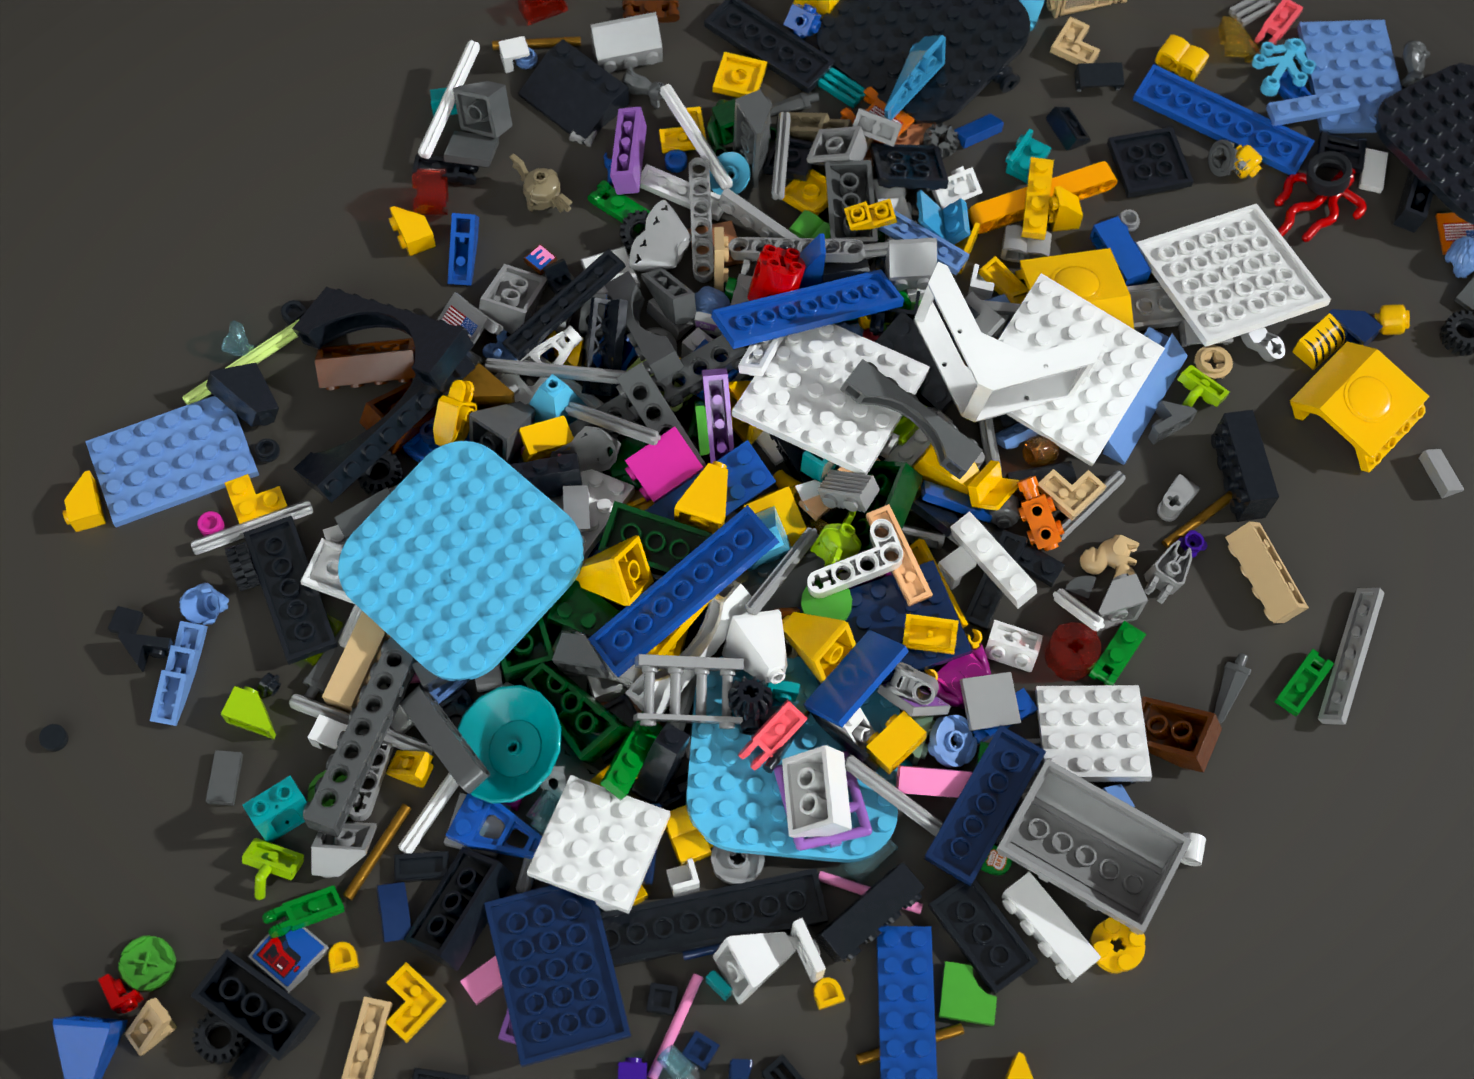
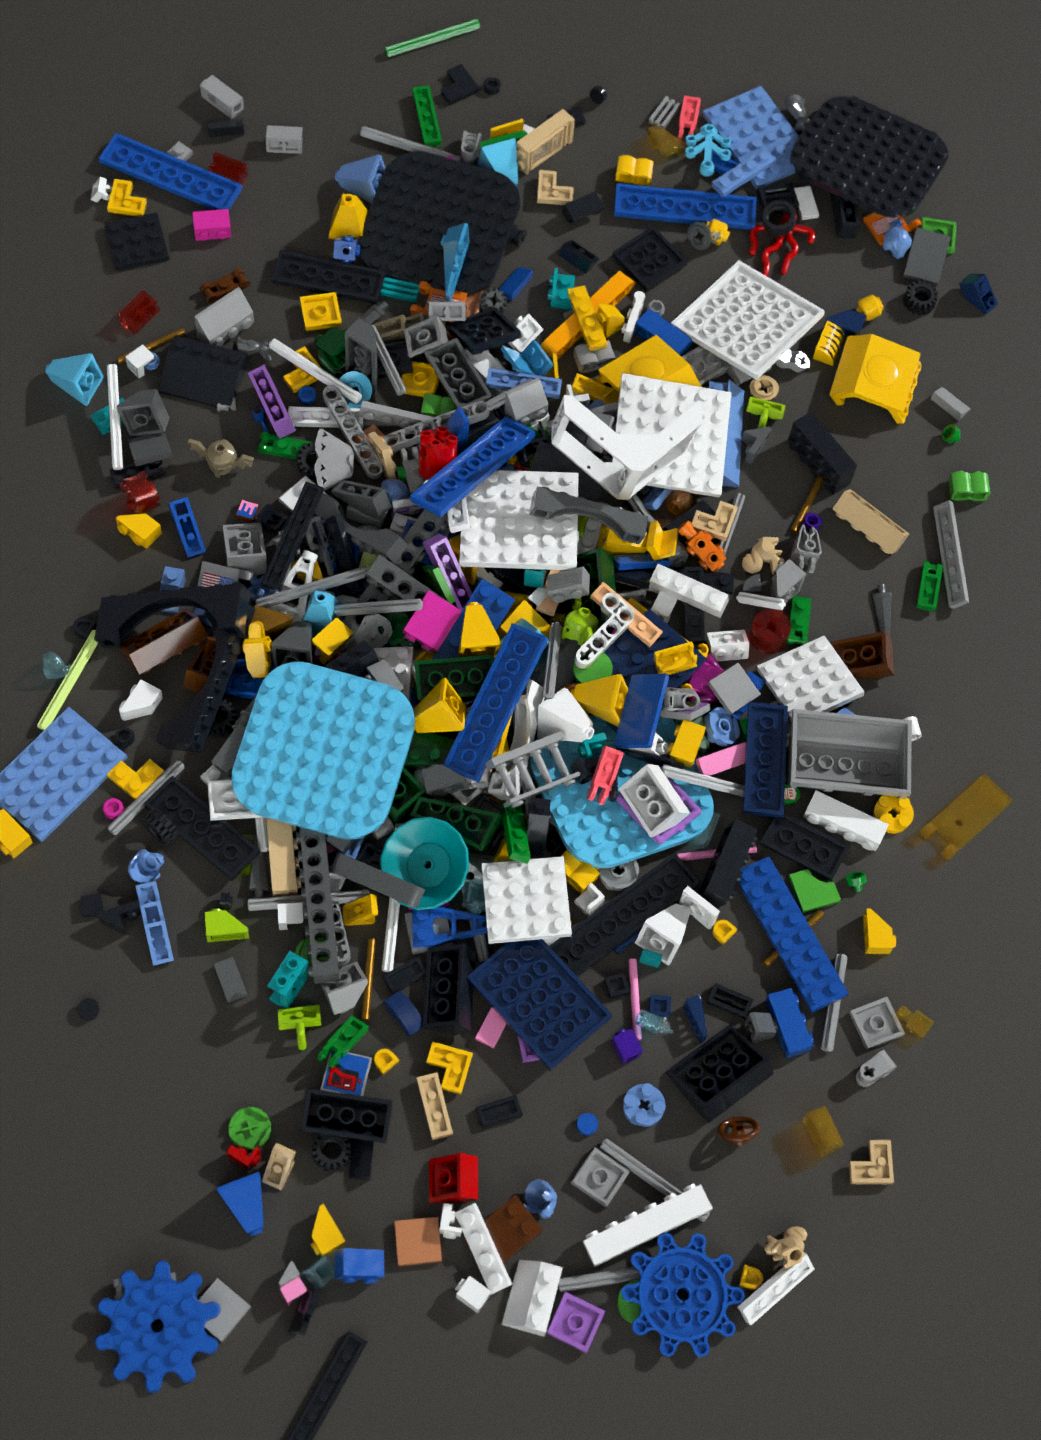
camera: 30 degrees left, 0 degrees up
(245, 393) = (86, 702): black slope -> none
(305, 419) = (141, 702): none -> white slope
(414, 299) = (172, 580): none -> medium blue slope
(438, 43) = (76, 375): none -> medium azure slope
(750, 698) = (578, 756): black gear -> none
(870, 216) = (478, 380): yellow slope -> none
(1026, 1008) = (856, 880): none -> green tile
(1083, 229) = (633, 316): none -> white plate
(1176, 498) = (786, 496): light grey piece -> none
(1225, 990) = (975, 810): none -> clear yellow hinge
(1416, 582) = (969, 486): none -> bright green brick
(1423, 509) = (951, 434): none -> green tile

